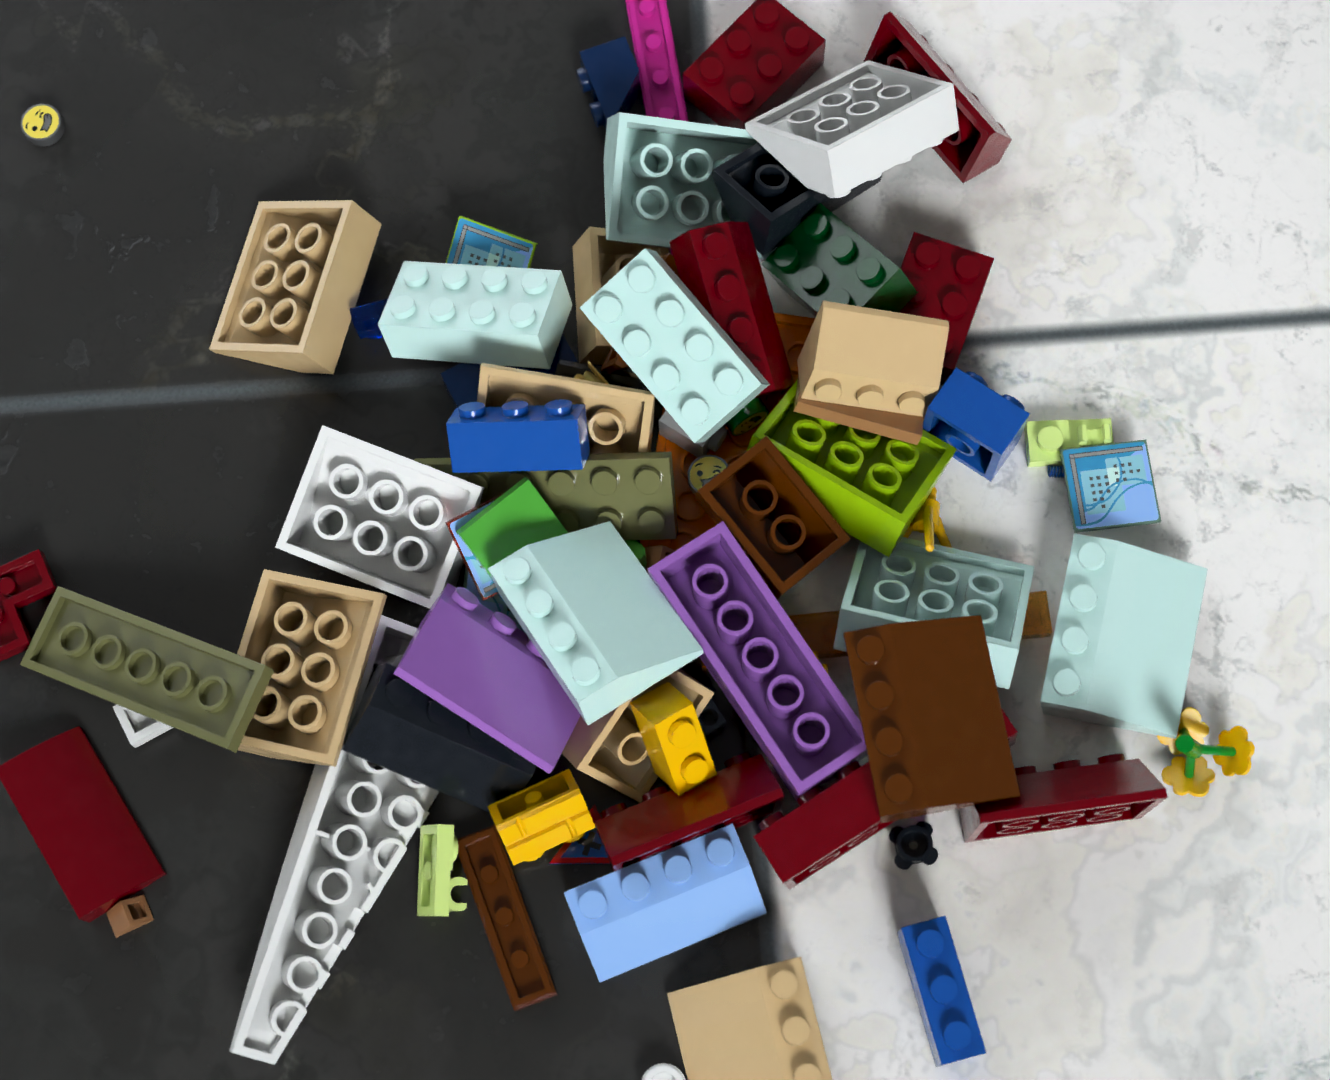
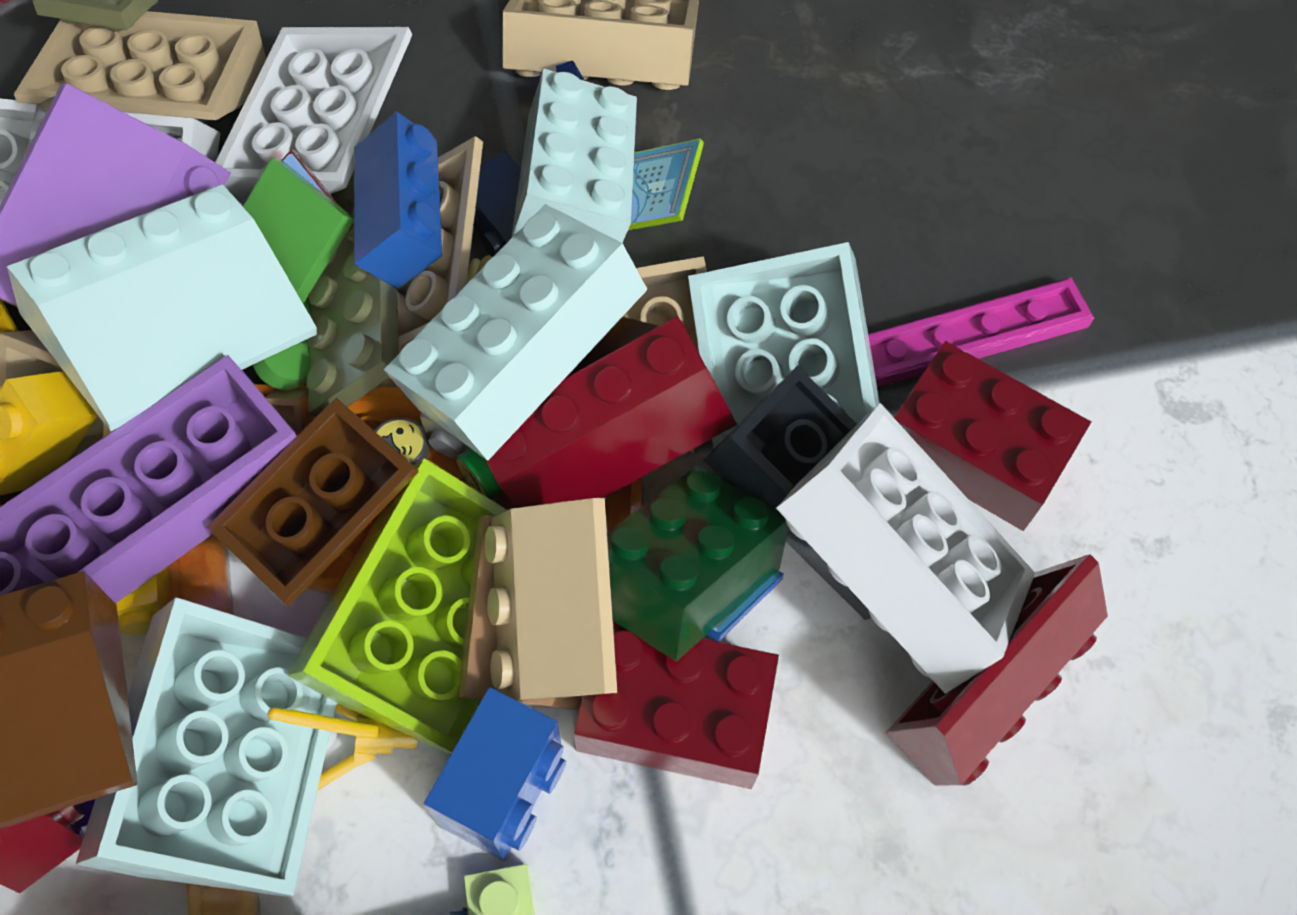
camera: 75 degrees right, 10 degrees down
(610, 77) = (920, 281): dark blue slope -> none

